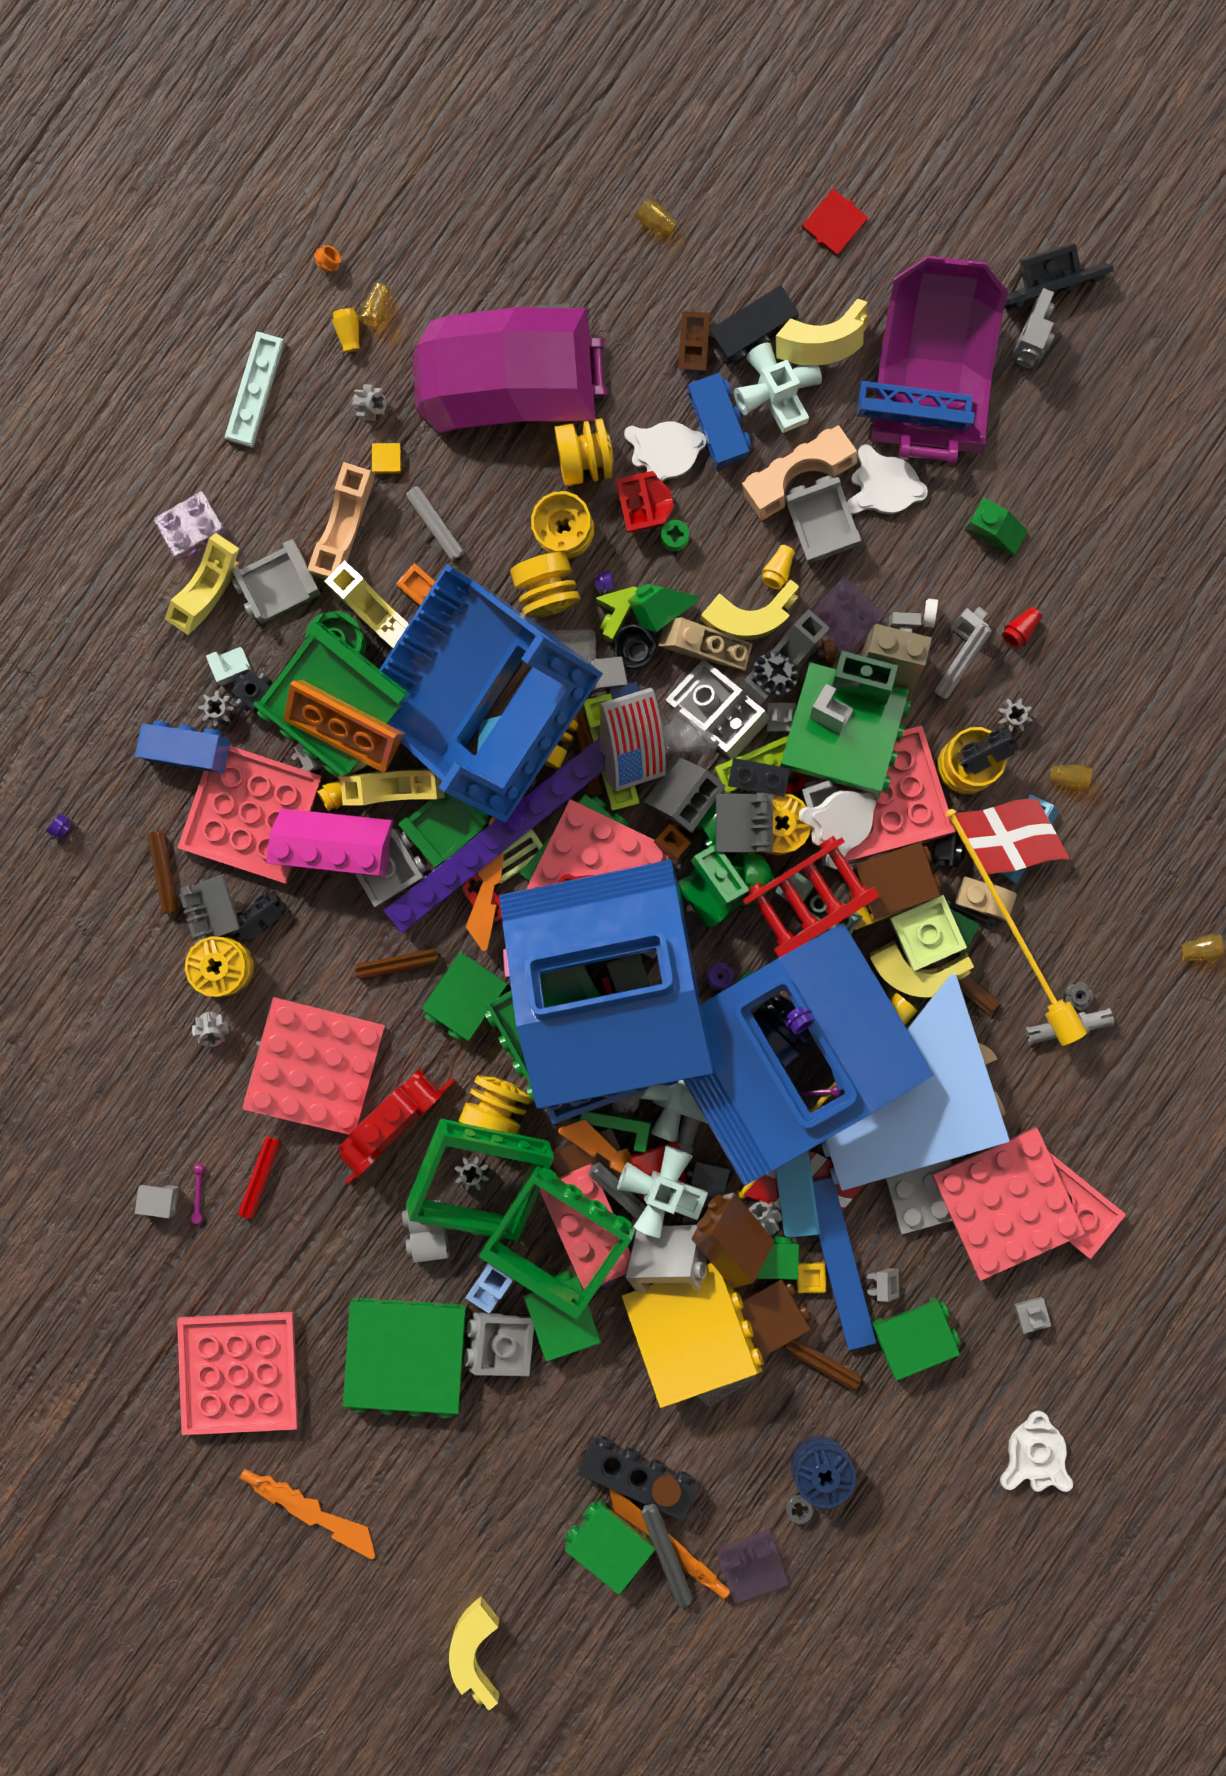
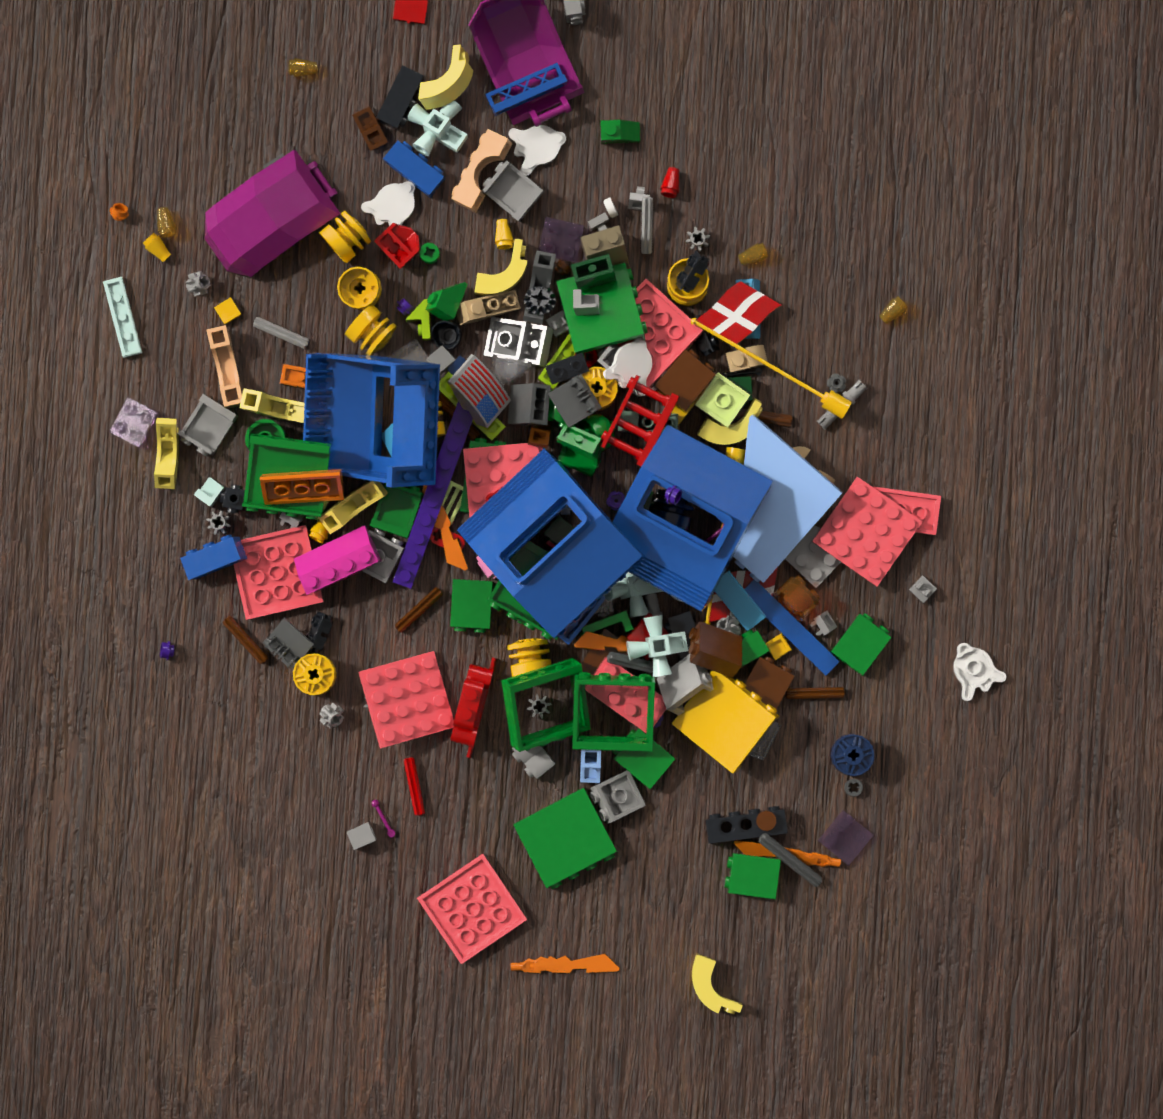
camera: 30 degrees left, 0 degrees up
(872, 1234) = (797, 597): none -> clear orange brick

